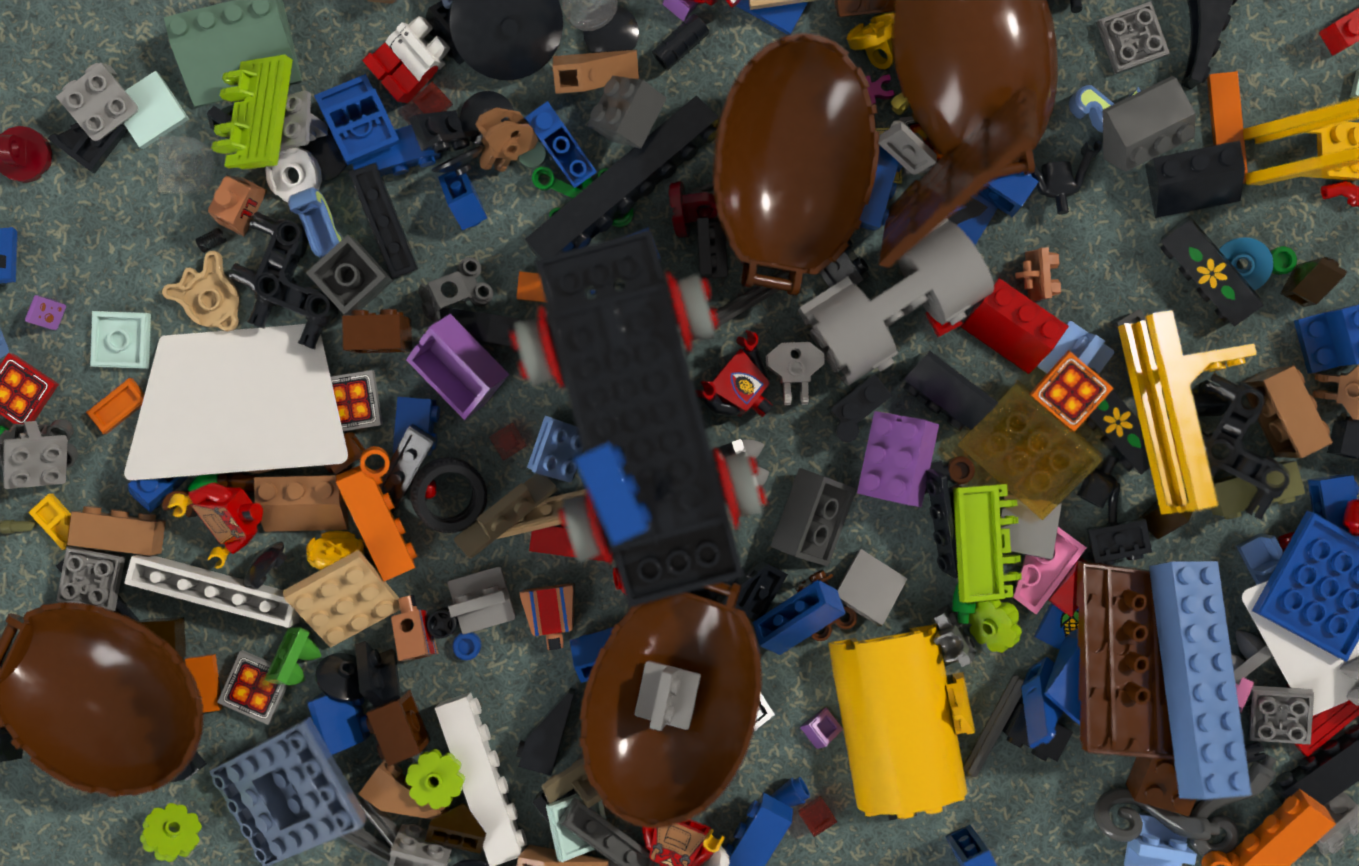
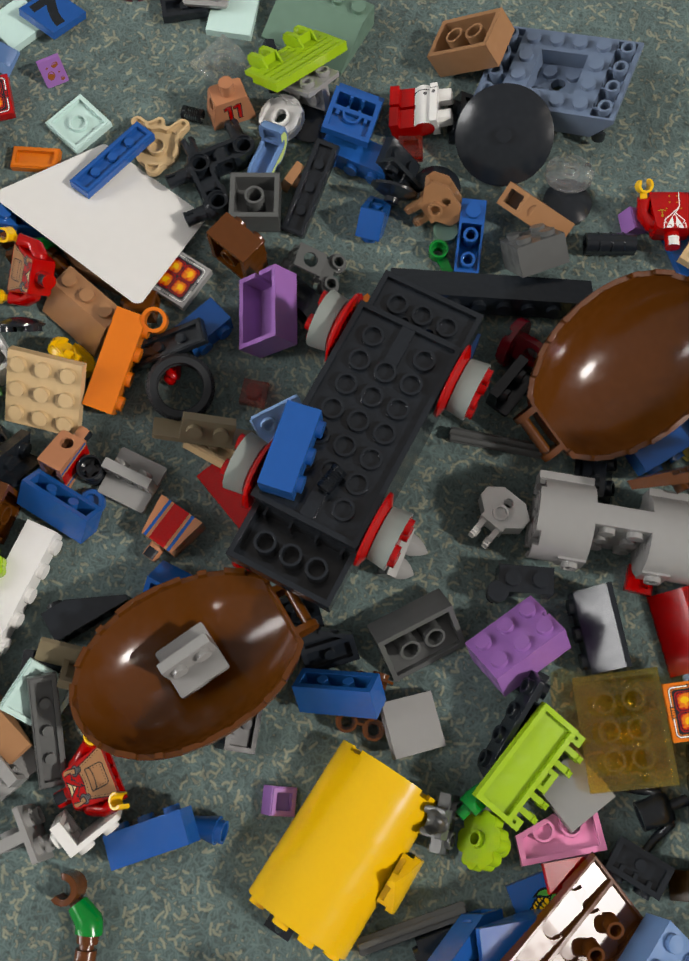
camera: 45 degrees right, 15 degrees down
(189, 349) = (112, 160): none -> blue tile
(358, 222) = (293, 177): none -> medium nougat plate
(447, 674) = (59, 505): none -> blue brick
(739, 382) = (448, 490): torso -> none
(817, 816) = (212, 866): clear red plate -> none
(961, 469) = (559, 700): reddish brown tile -> none

